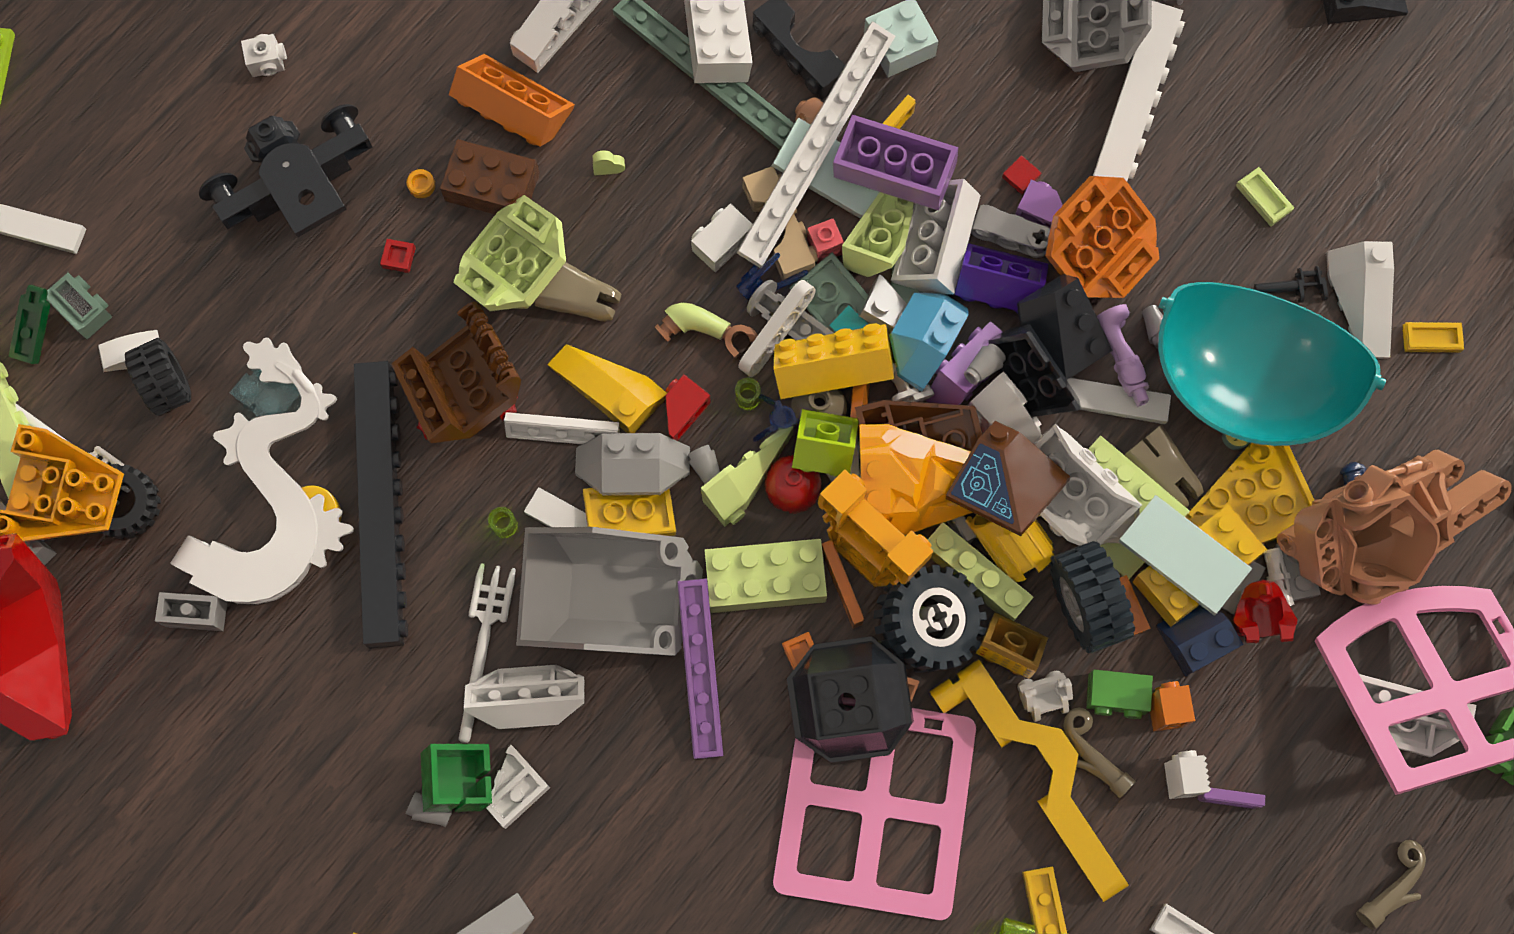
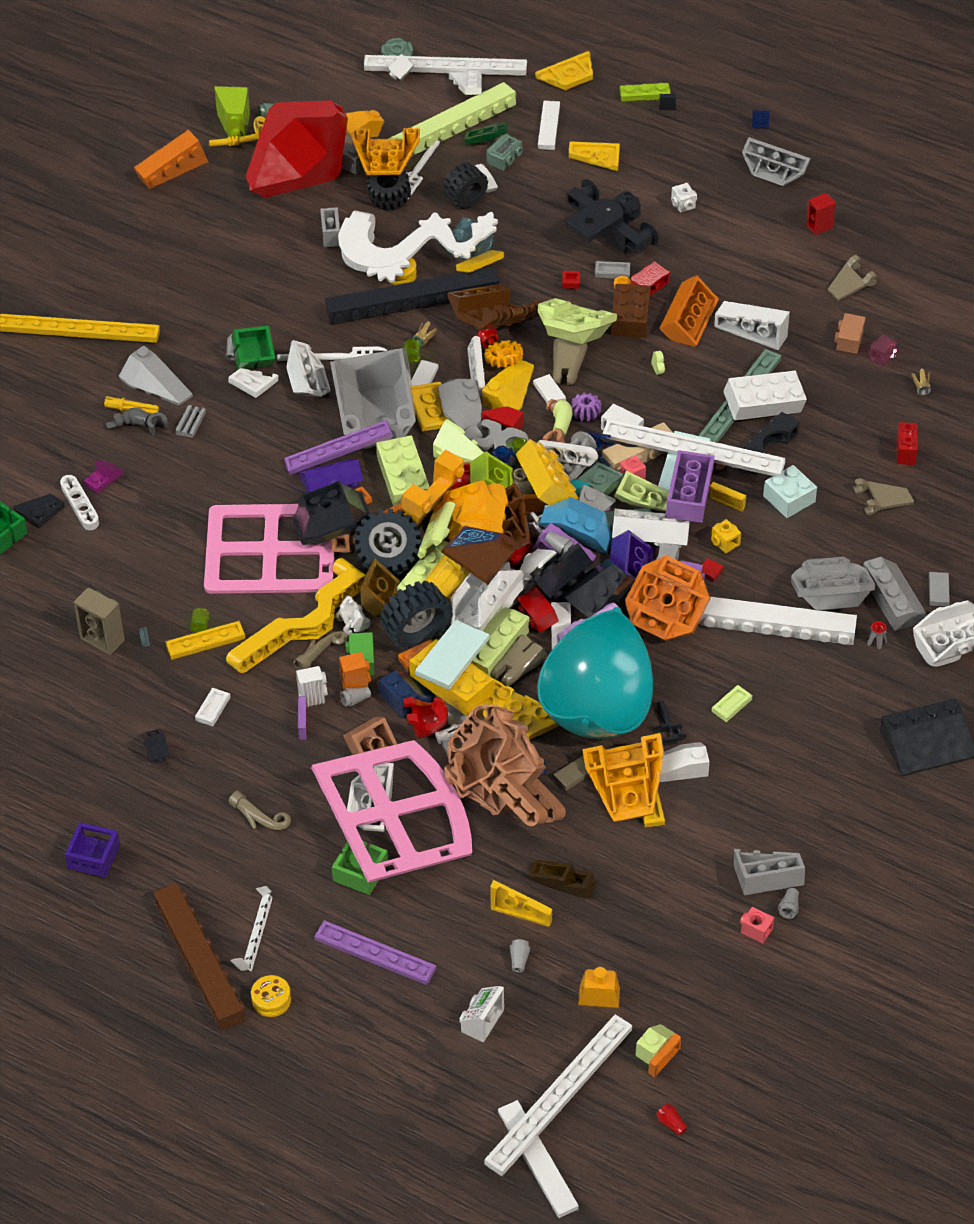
camera: 80 degrees right, 25 degrees down
(31, 36) = (667, 102): none -> black tile
(120, 165) = (598, 154): none -> yellow wing
(322, 370) = (480, 261): none -> yellow tile
(386, 192) = (612, 269): none -> light grey tile
(428, 140) = (653, 276): none -> brick
(471, 501) = (421, 336): none -> pearl gold piece
(549, 370) = (503, 354): none -> light orange gear
(557, 890) = (201, 413): none -> light grey tile
(626, 330) = (548, 388): none -> white tile
(689, 284) = (586, 407): none -> medium lavender gear
(726, 424) = (496, 437): none -> light grey piece
(749, 689) = (344, 471): none -> dark purple slope
(947, 539) = (437, 528): none -> yellowish green piece
(973, 138) = (726, 536): none -> yellow brick
(1086, 422) = (538, 610): none -> red brick
(1203, 719) = (352, 696): none -> light grey cone
(1288, 701) = (370, 736): none -> nougat slope
(1369, 432) = (571, 774): none -> dark tan tile
(1412, 351) = (627, 776): none -> light orange wedge

